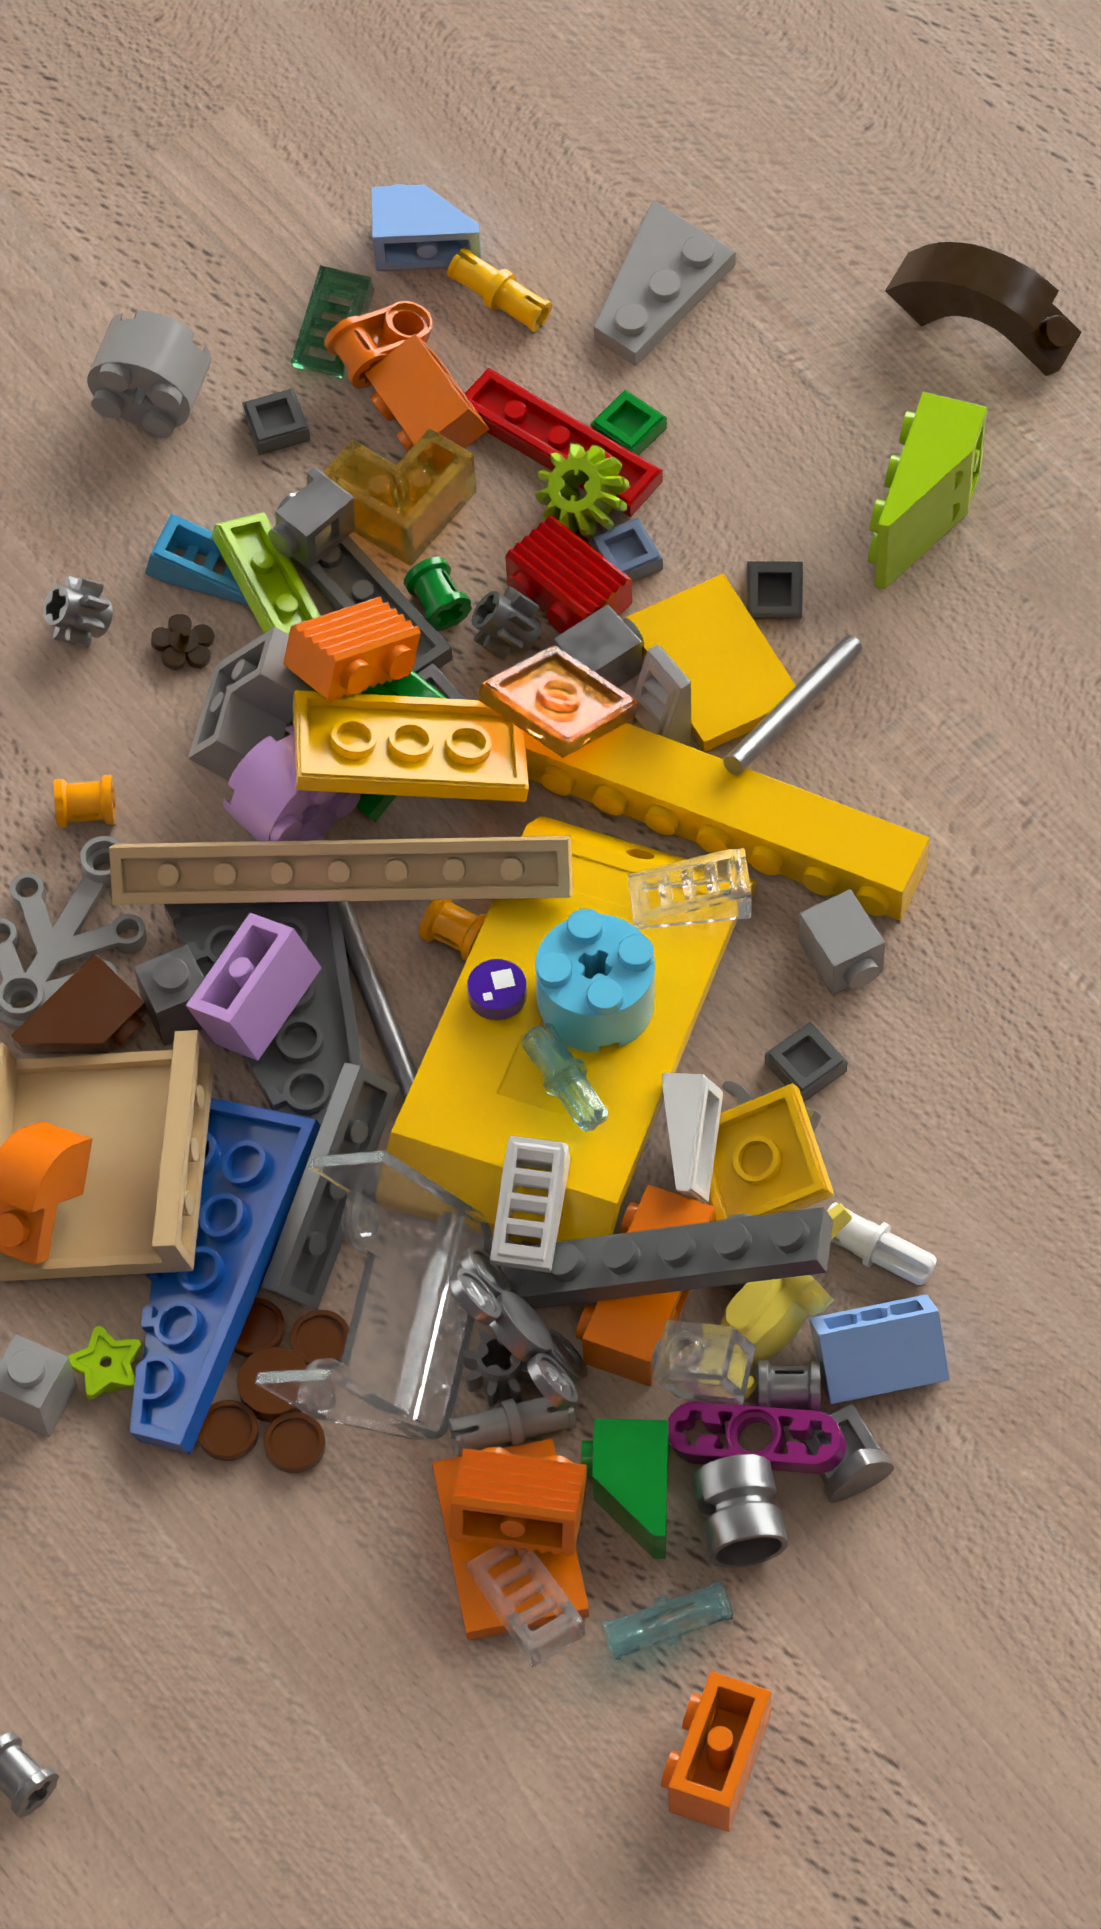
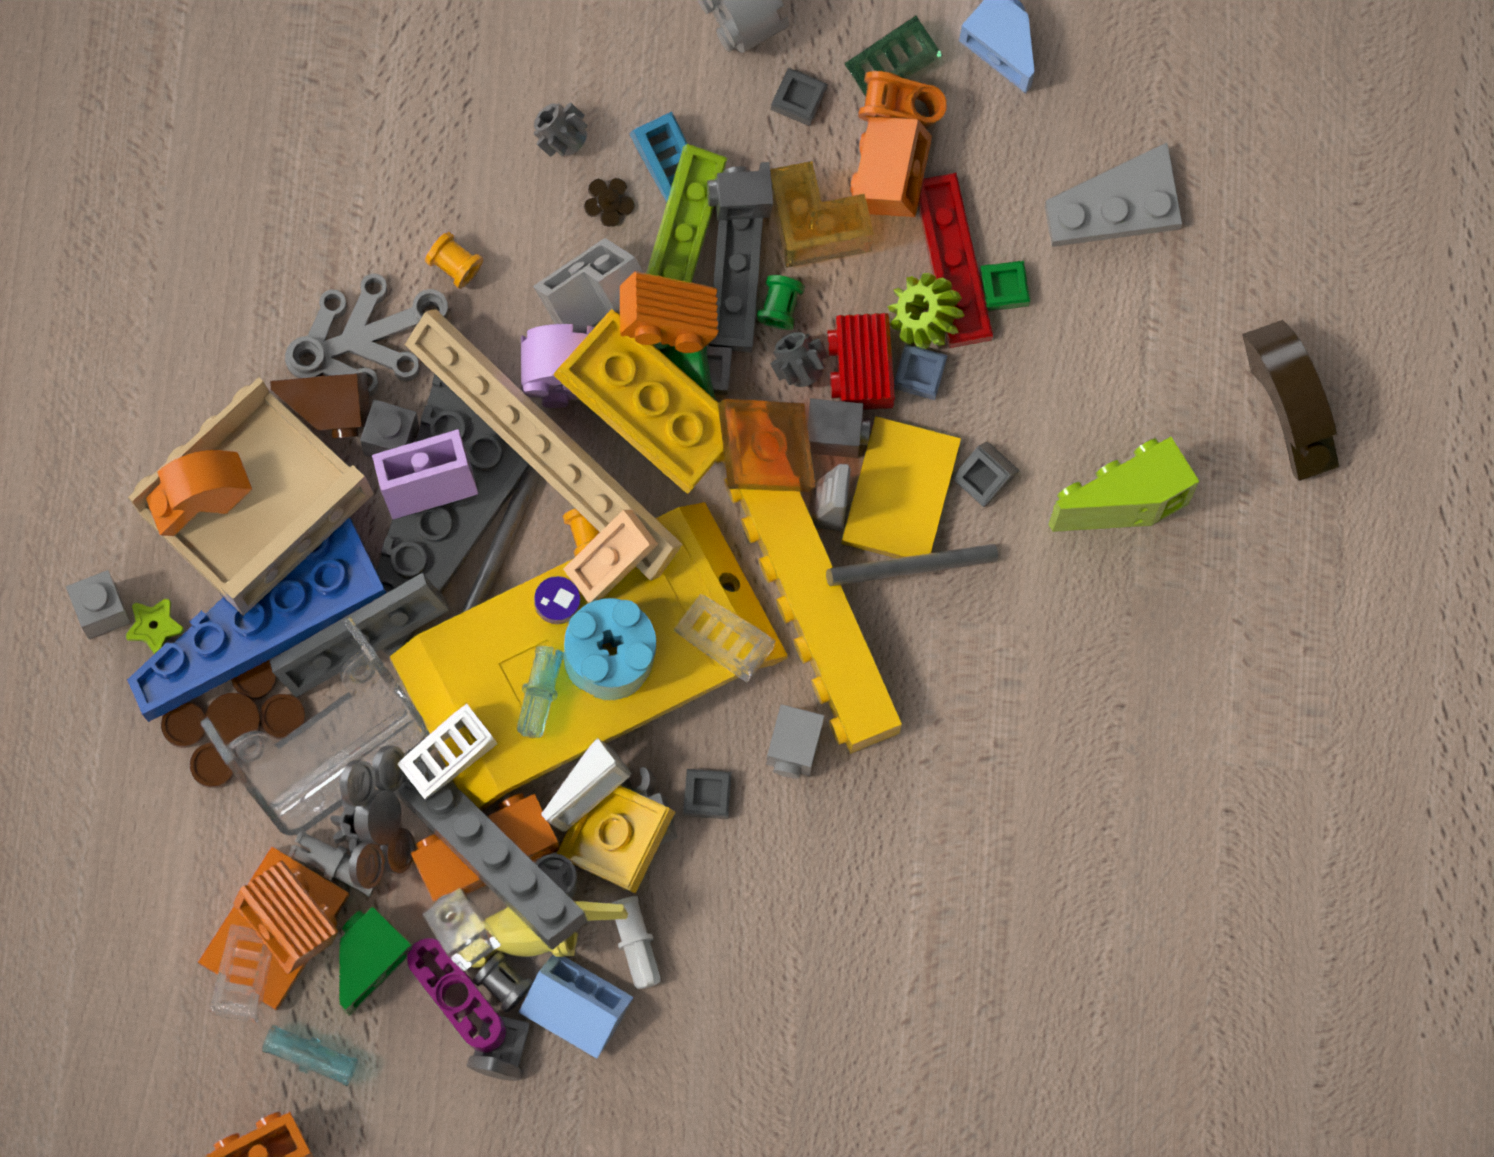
camera: 35 degrees right, 15 degrees up
(499, 289) = (1013, 124): yellow pin -> none
(513, 901) = (610, 556): none -> light nougat plate
(741, 1520) = (406, 1027): flat silver wheel -> none

